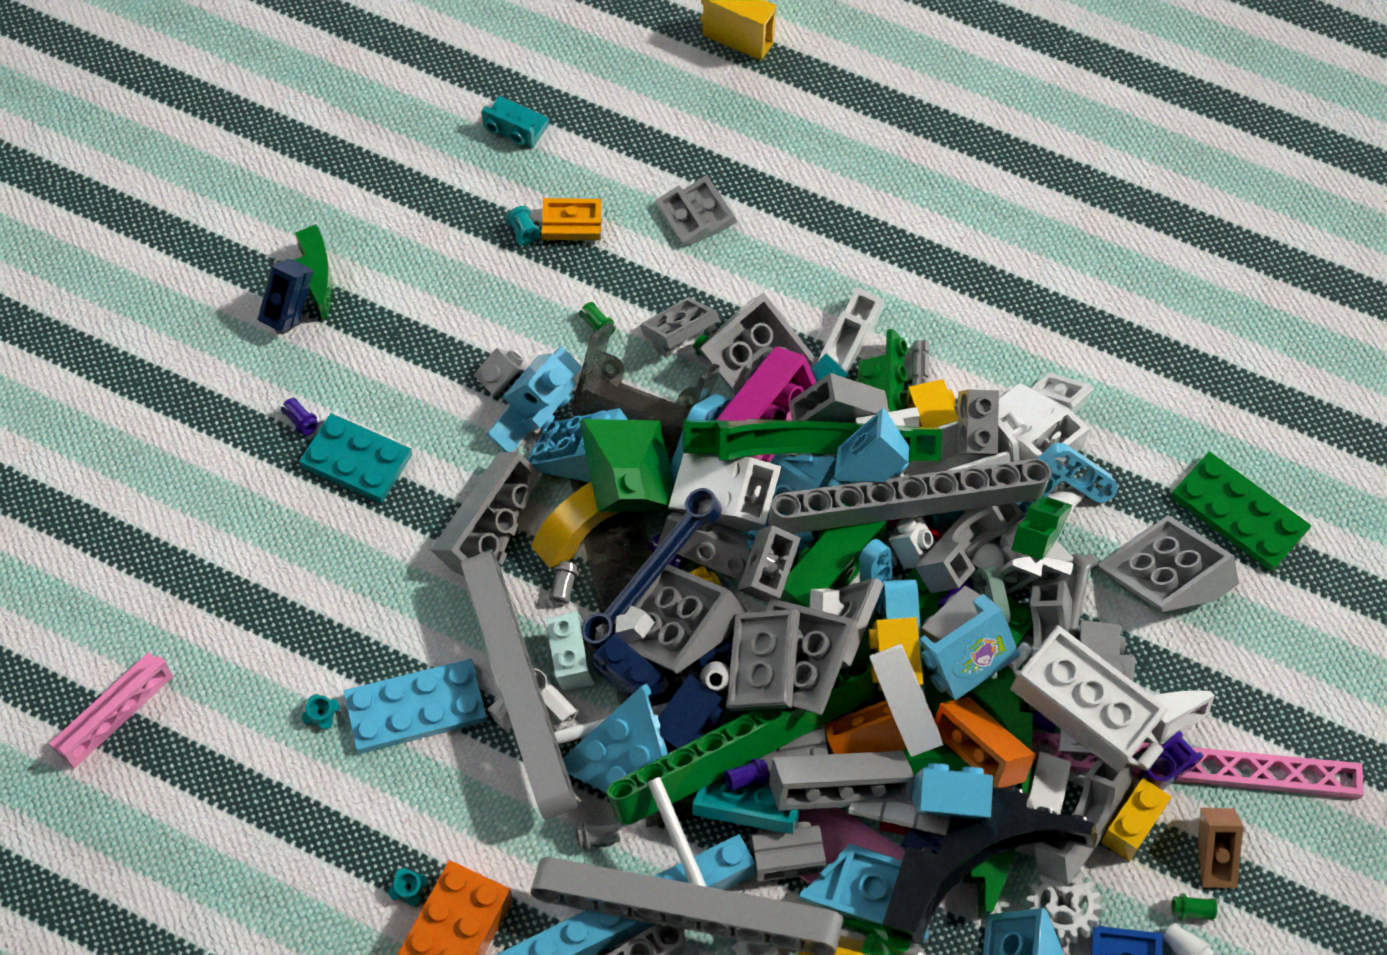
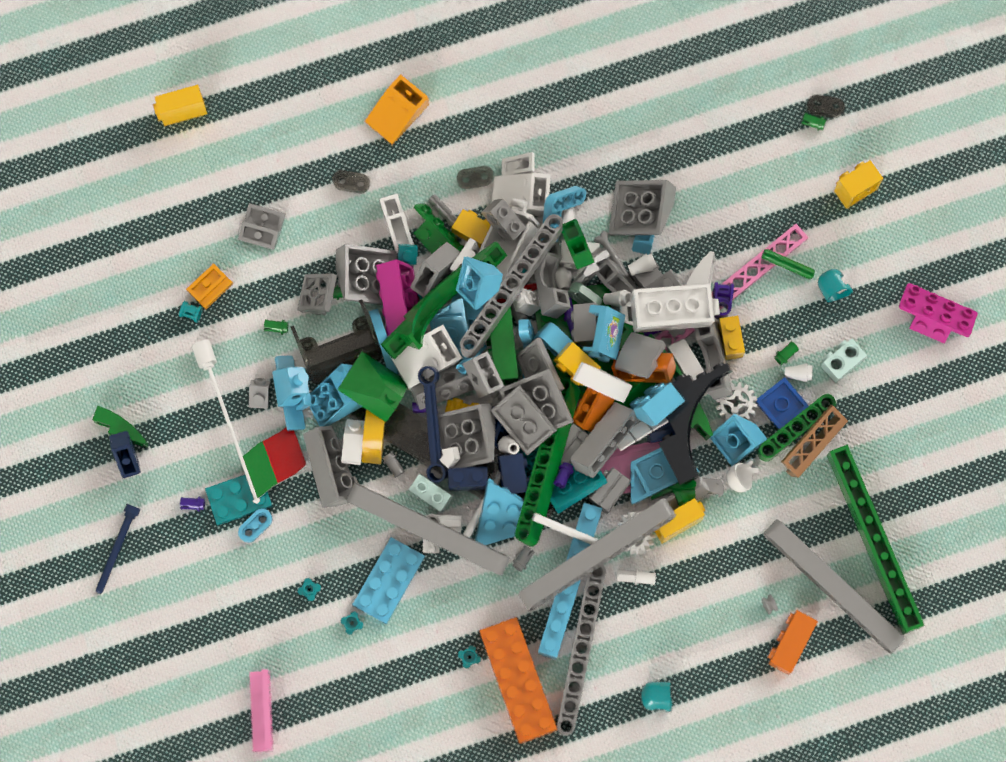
camera: 45 degrees left, 15 degrees up
(225, 365) = (130, 514): none -> dark blue piece
(320, 635) = (309, 594): none -> teal plate
(339, 501) = (255, 525): none -> medium azure plate
(433, 448) = (269, 460): none -> flag
(514, 122) = (126, 260): teal bracket -> none
(536, 508) = (353, 442): none -> white slope
(826, 600) = (523, 369): white piece -> none
(846, 251) = (352, 180): none -> clear smoke plate
(978, 219) = (397, 109): none -> light orange slope
(988, 717) = (639, 355): none -> light grey slope
(996, 364) = (474, 175): none -> clear smoke plate
(1029, 633) = (617, 298): none -> white cone
(1105, 626) = (642, 265): none -> white cone
(1132, 612) = (643, 244): none -> medium azure slope
(1219, 847) = (773, 316): medium nougat slope -> none
(1240, 511) = (644, 149): green plate -> none
(1303, 801) = (788, 264): none -> green axle
(1344, 872) = (831, 283): none -> teal helmet

